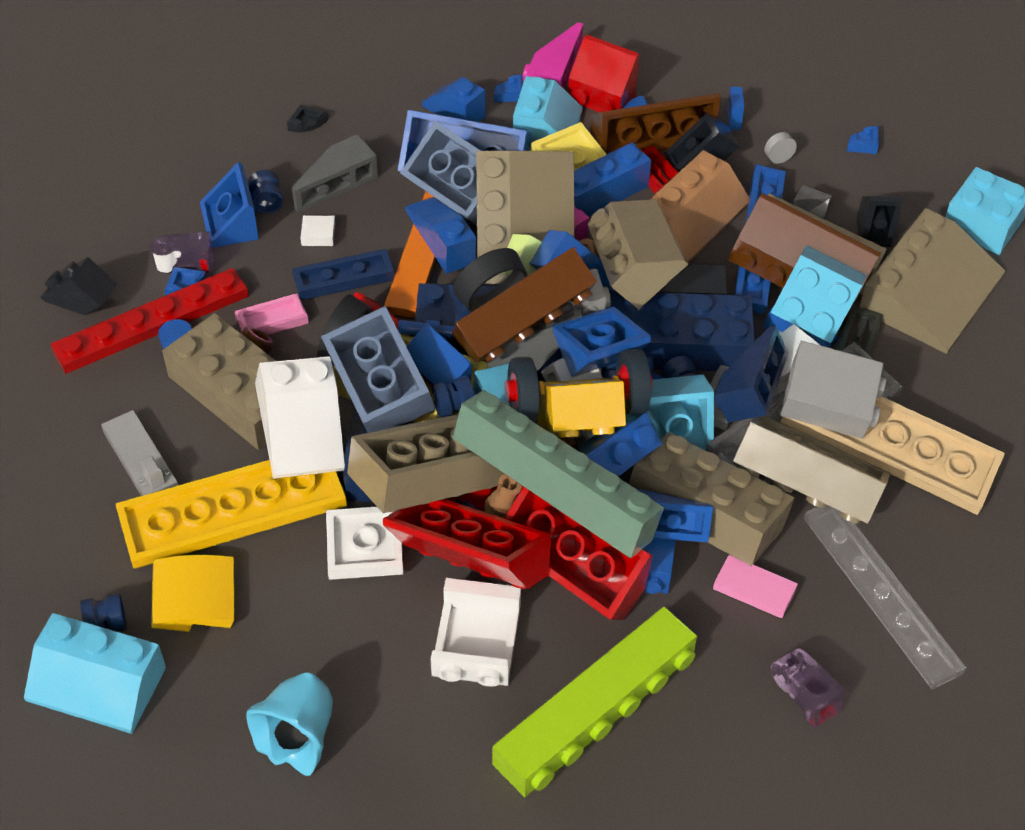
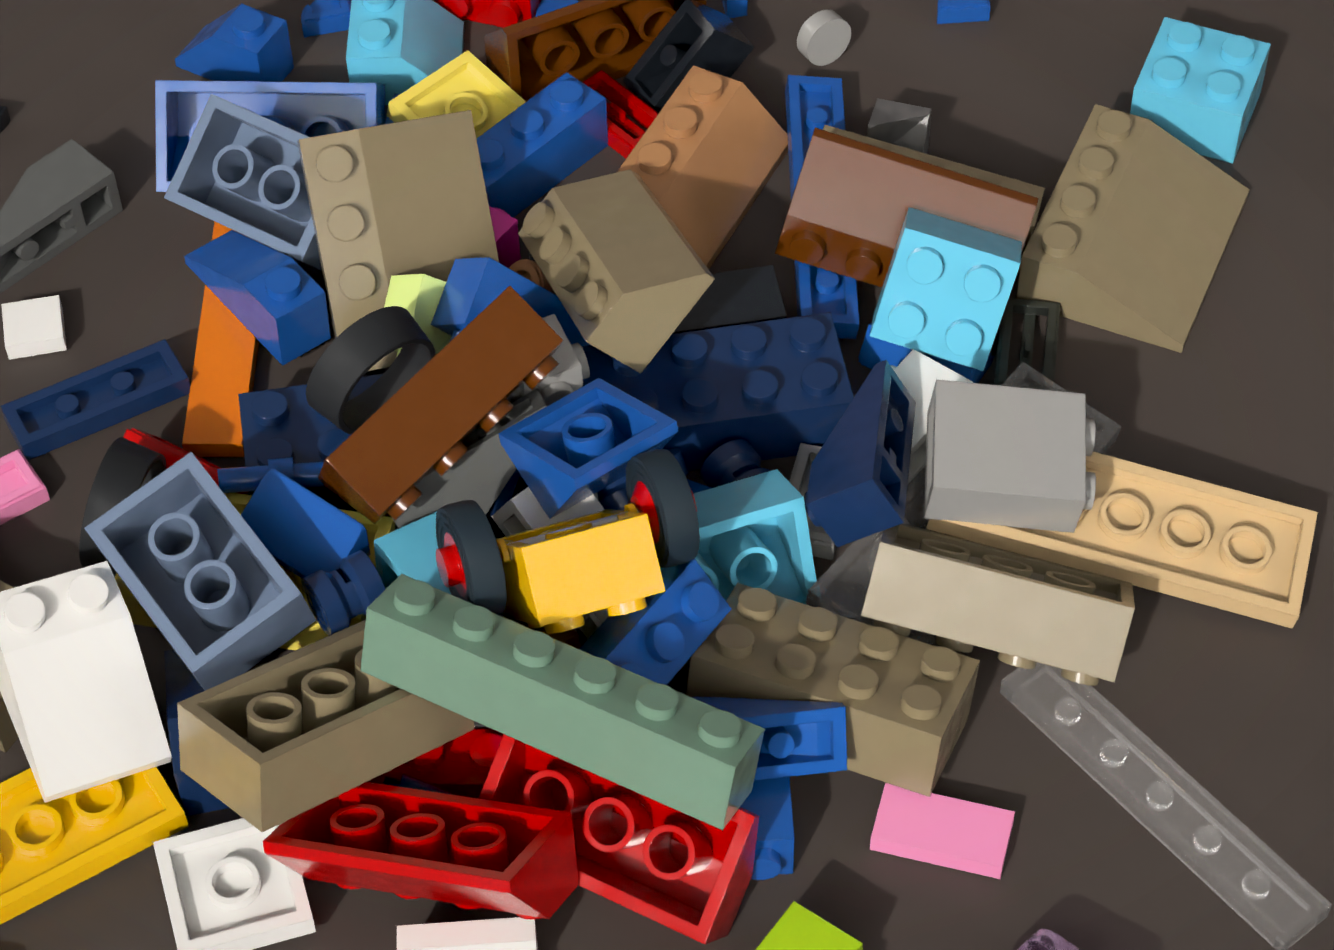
camera: 10 degrees left, 0 degrees up
(502, 499) = (470, 761): medium nougat pin -> none
(879, 218) = (1019, 136): black slope -> none

